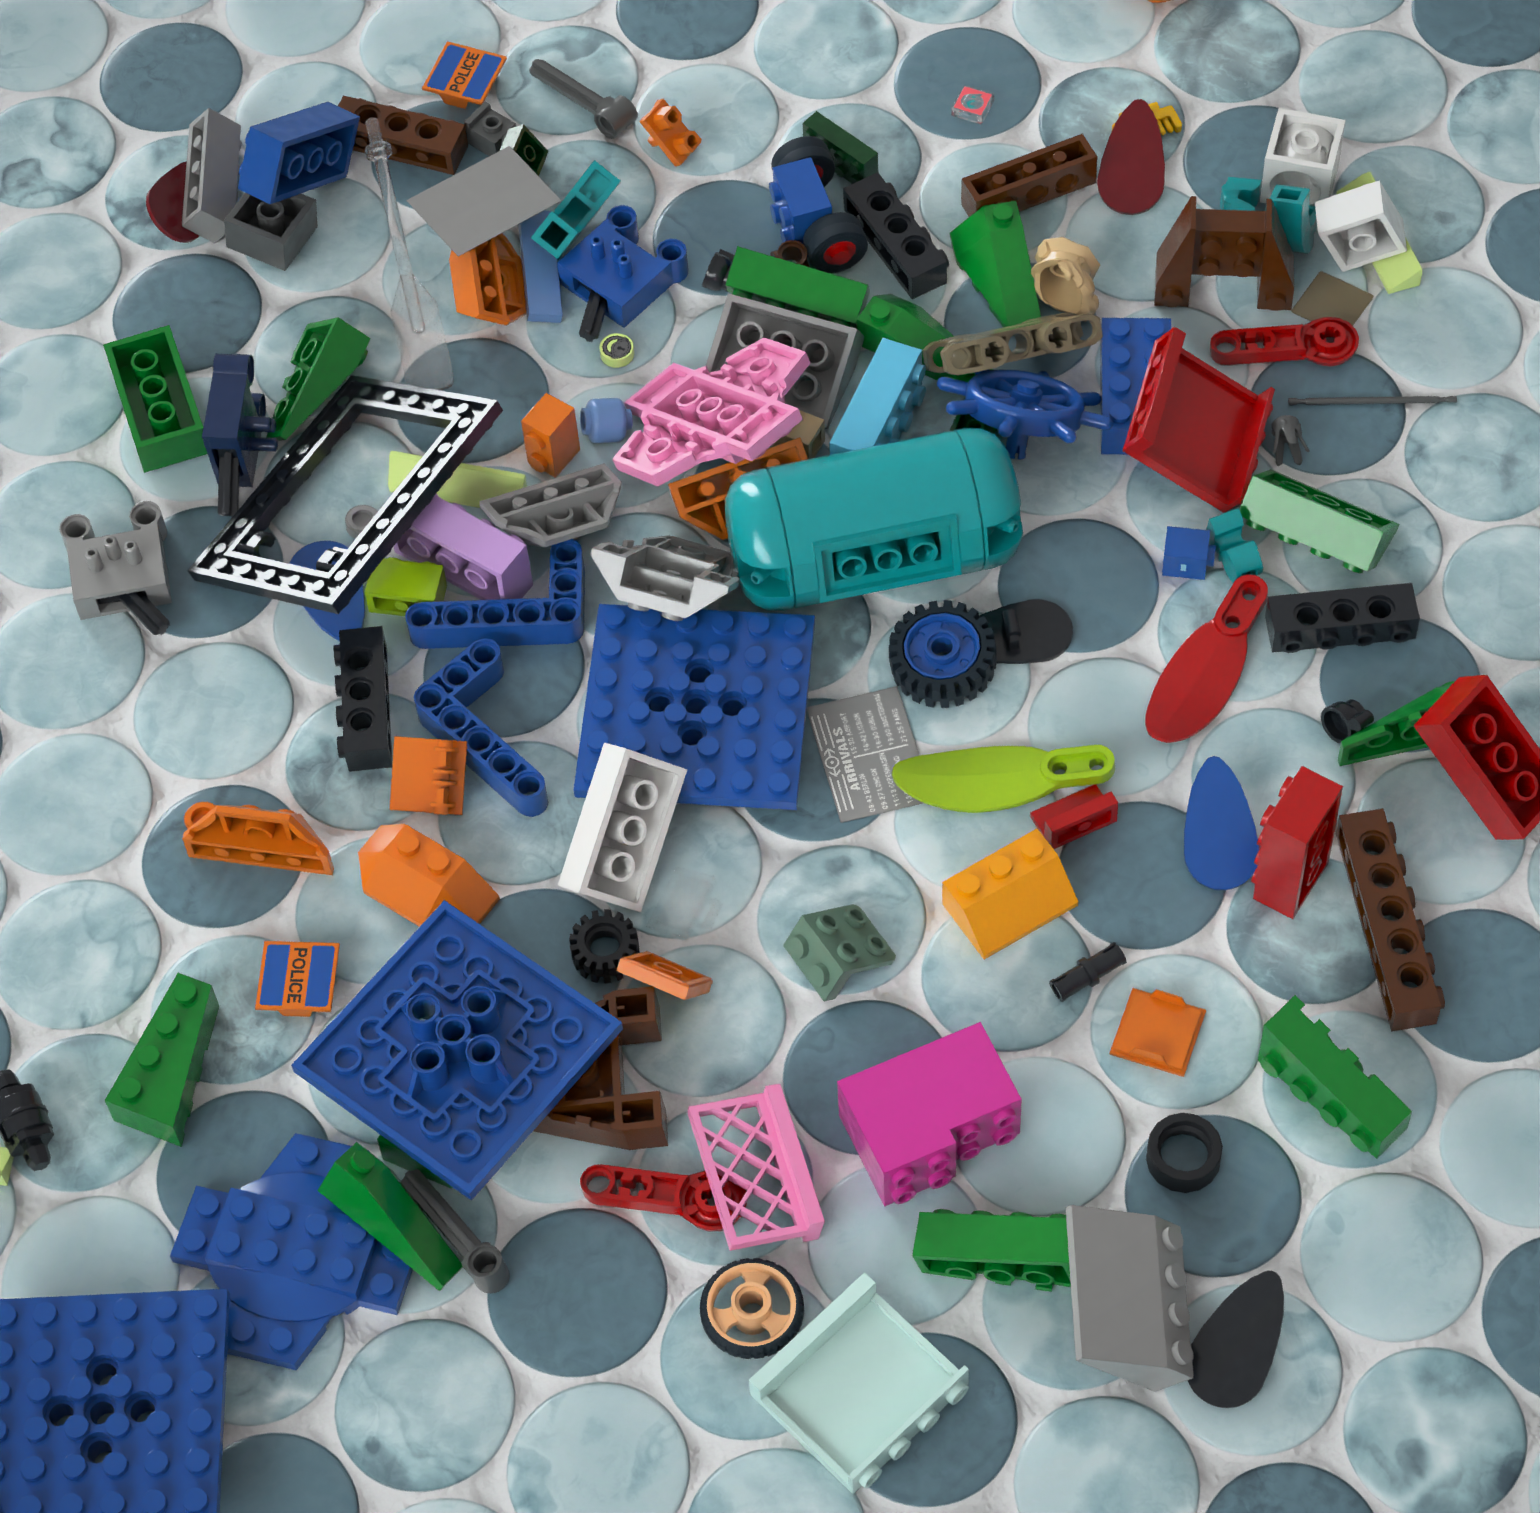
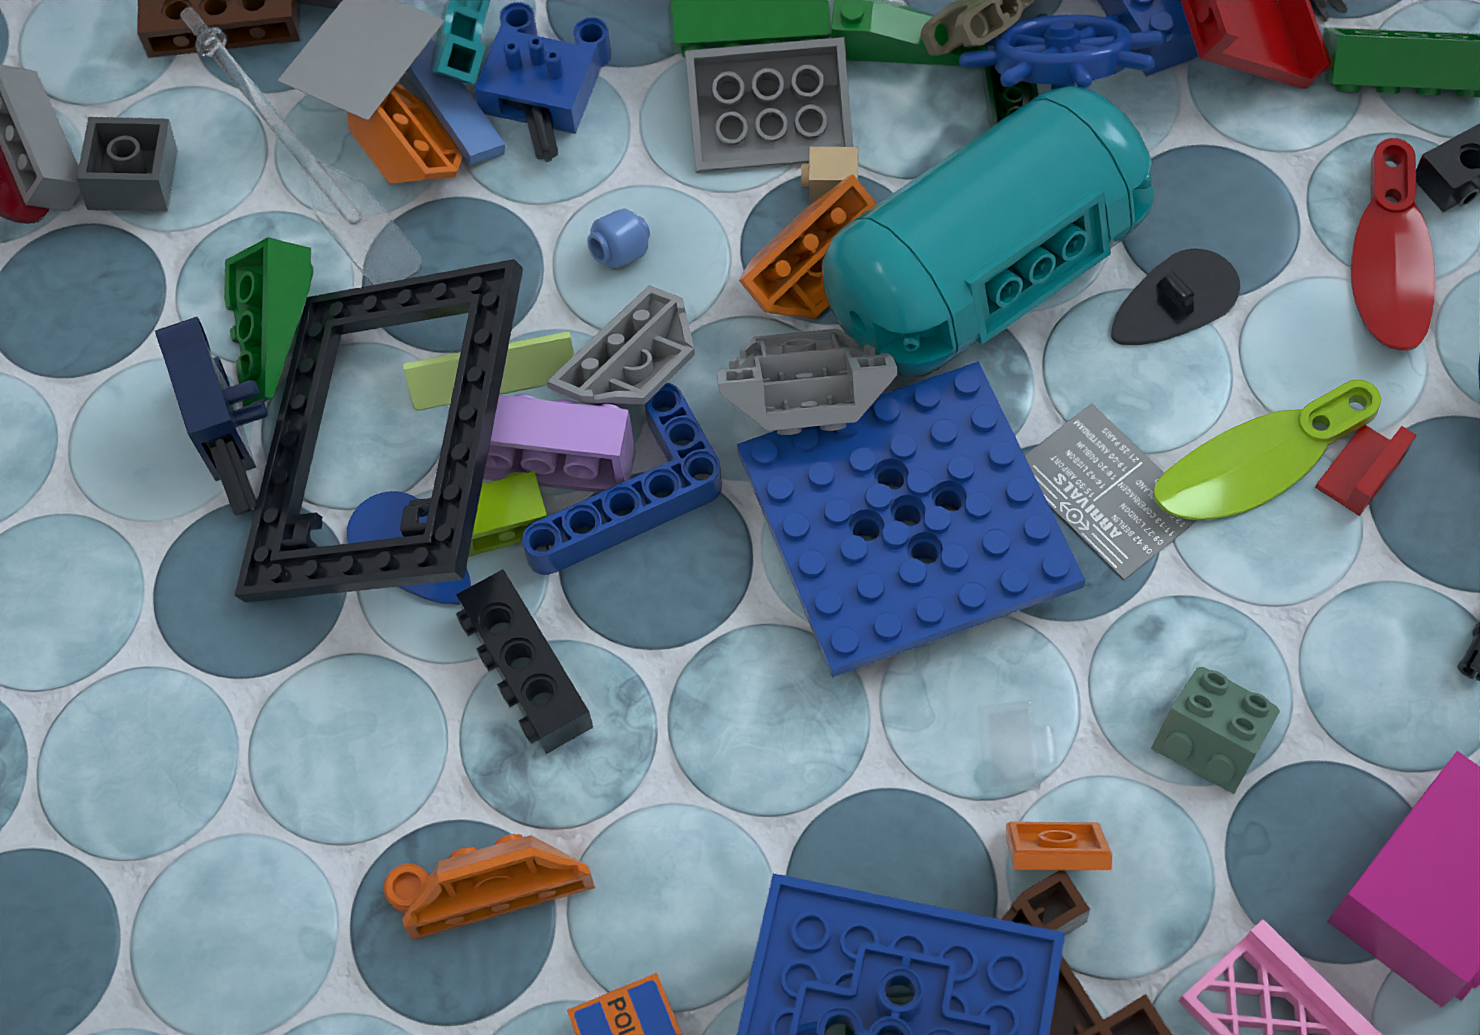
camera: 25 degrees left, 5 degrees up
(120, 569) = (152, 626): light grey piece -> none
(156, 398) = (97, 409): green brick -> none
(298, 152) = (124, 73): blue brick -> none
(358, 518) = (406, 457): light grey tile -> none
(418, 874) = (705, 849): orange wedge -> none
(428, 775) = (649, 722): orange hinge -> none
(452, 711) = (672, 646): blue beam -> none
(550, 435) = (573, 277): orange brick -> none
(597, 928) = (960, 865): black tyre -> none
(616, 350) = (584, 159): tile -> none
(622, 827) = (913, 693): white slope -> none
(714, 414) = (745, 184): bright pink plate -> none
(718, 271) = (650, 36): black piece -> none
(883, 399) = (911, 107): medium azure brick -> none
(945, 677) = (1119, 376): wheel -> none
(1009, 894) = (1359, 585): light orange slope -> none
(1187, 553) = (1304, 142): blue brick -> none
(1236, 554) = (1355, 127): teal leg -> none

